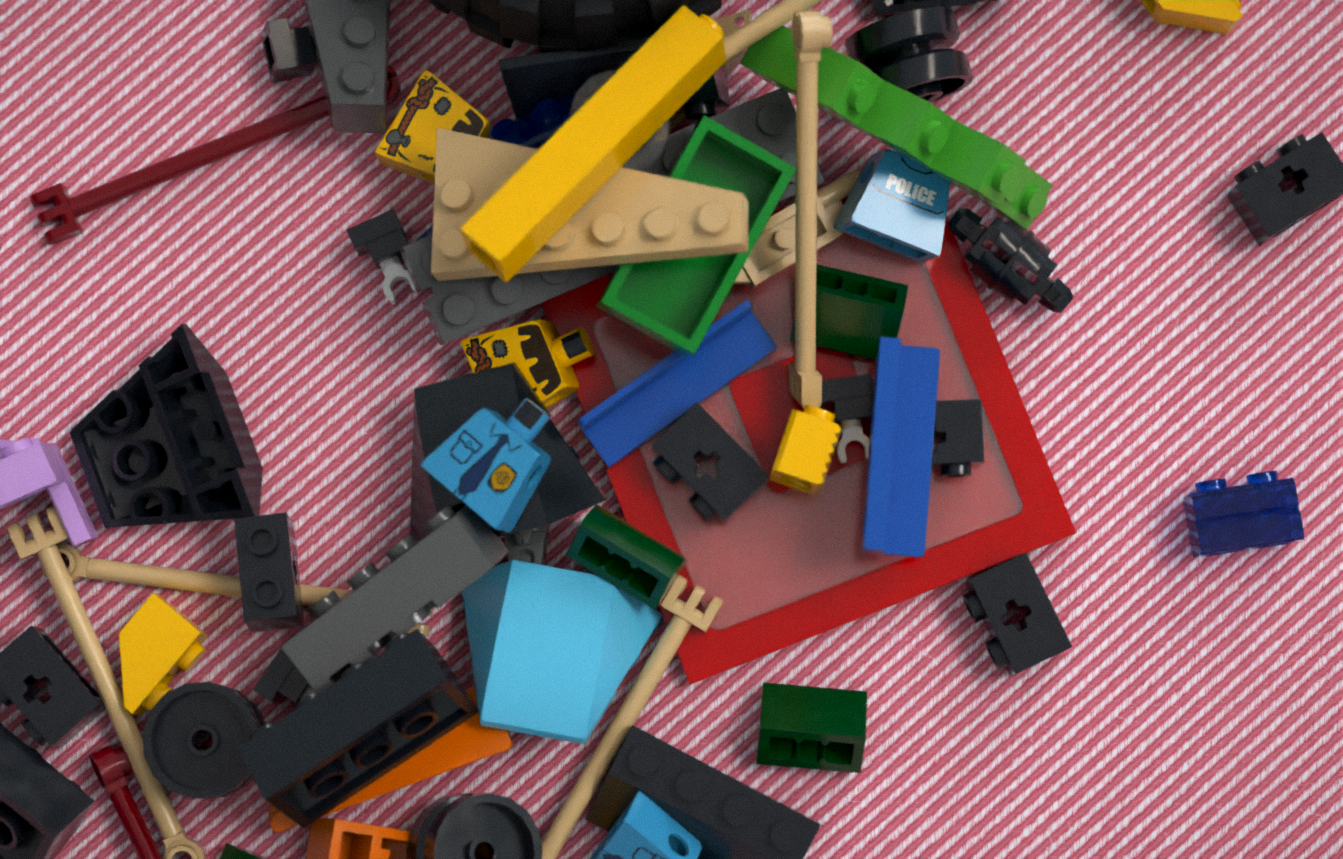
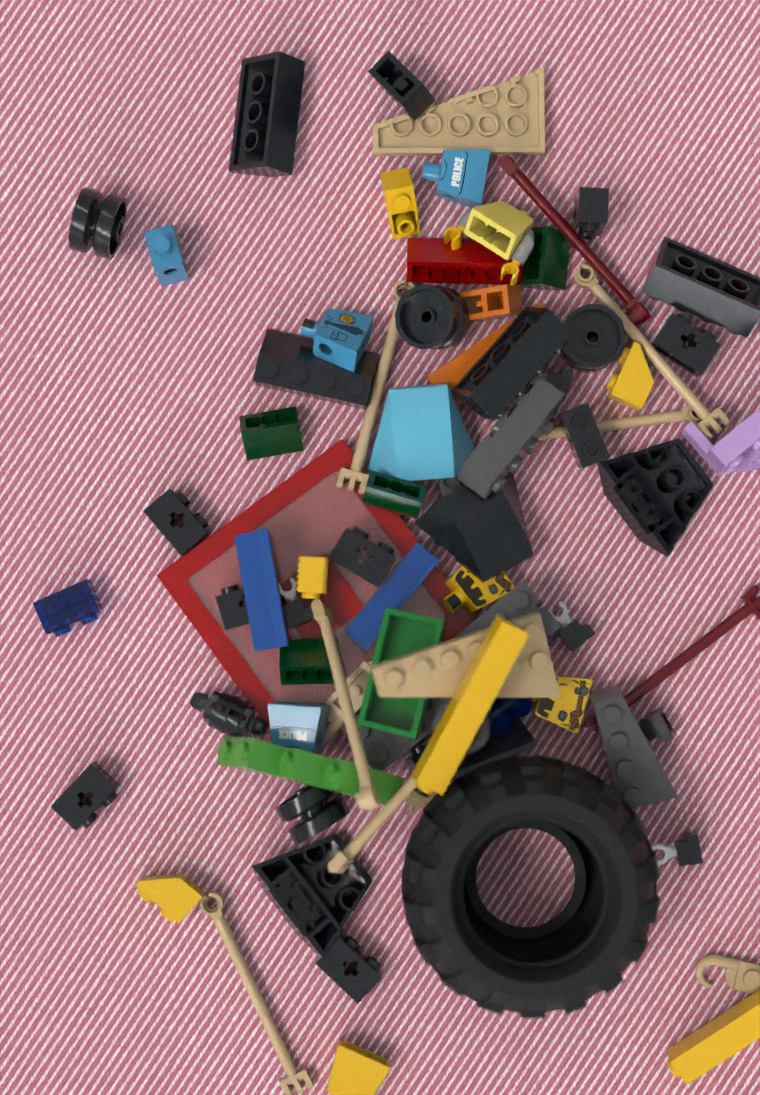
camera: 160 degrees right, 5 degrees up
(494, 463) = (477, 520): dark azure torso -> none

